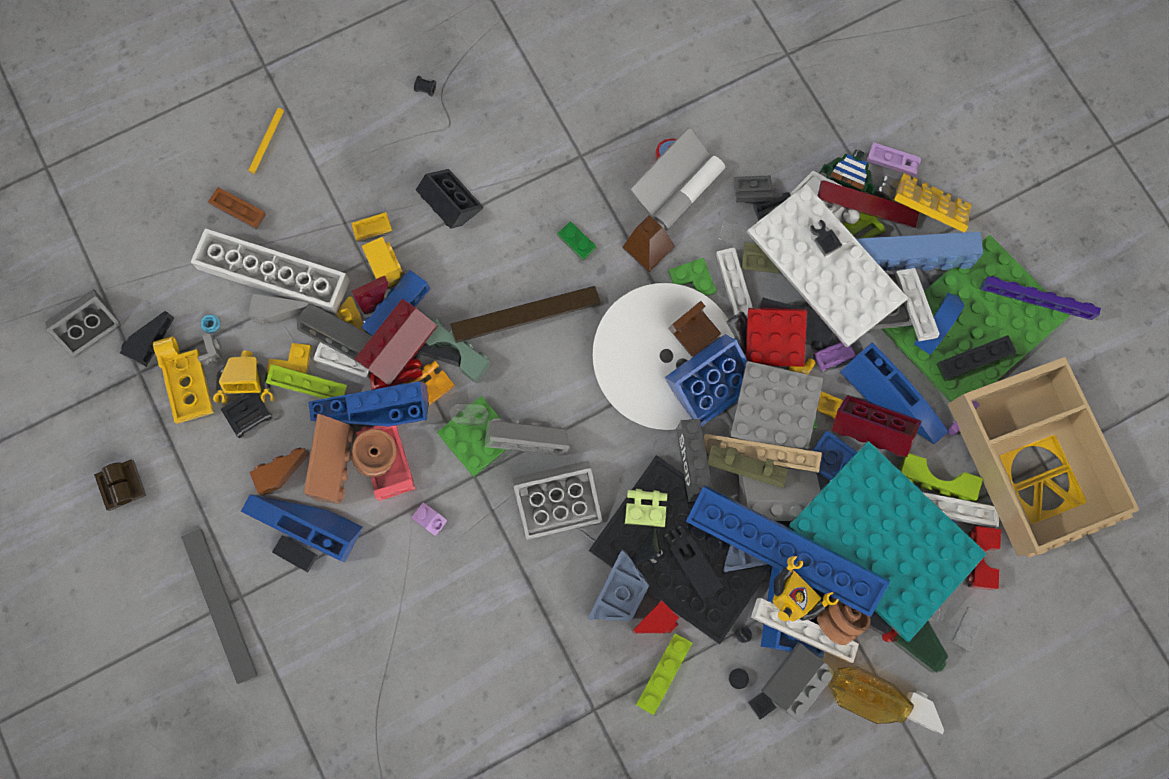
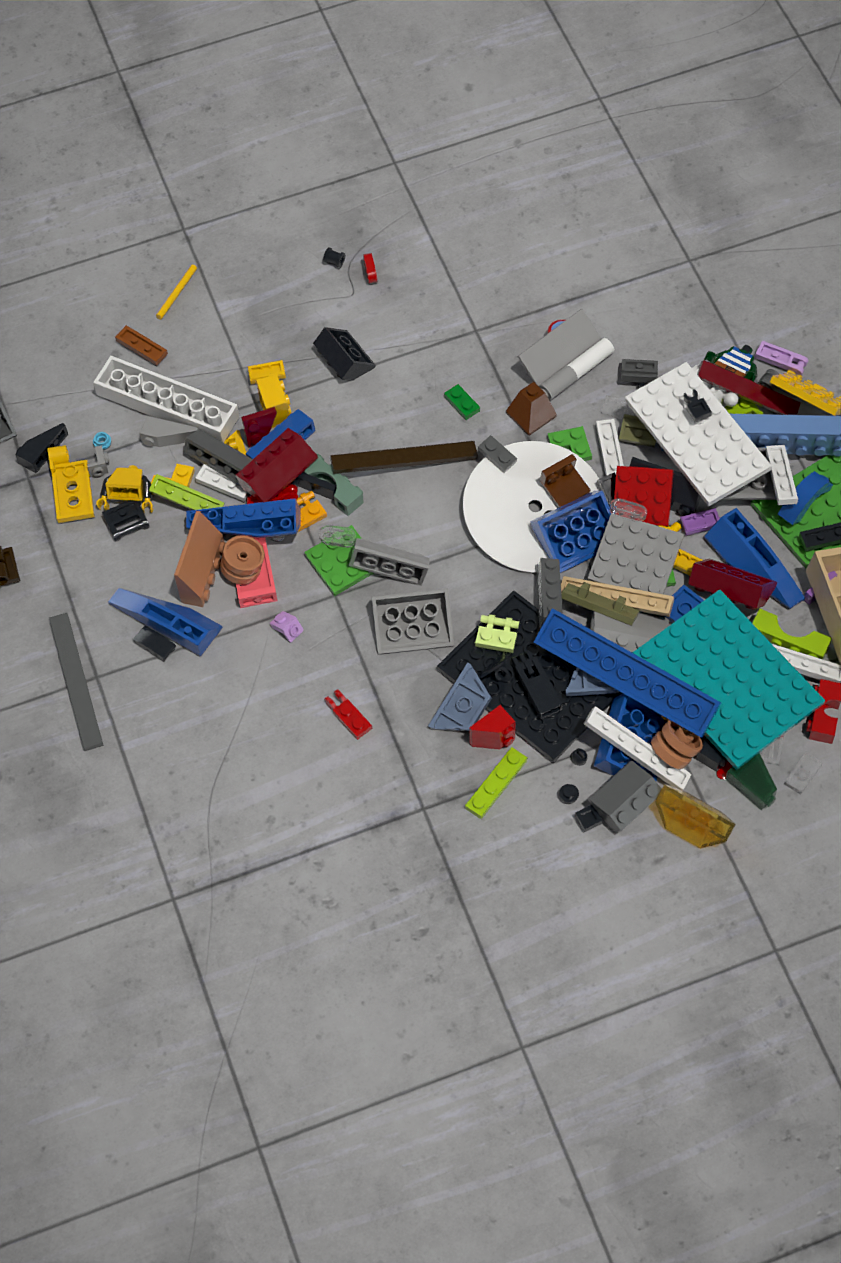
camera: 10 degrees right, 15 degrees down
(275, 474) = (147, 571): dark orange slope -> none
(463, 95) = (370, 268): none -> red beam
(506, 614) = (349, 715): none -> red hinge
(622, 303) = (497, 454): none -> dark grey plate
(763, 357) = (628, 510): none -> clear plate
(795, 596) = (630, 712): yellow torso -> none
(924, 712) = (746, 840): white slope -> none

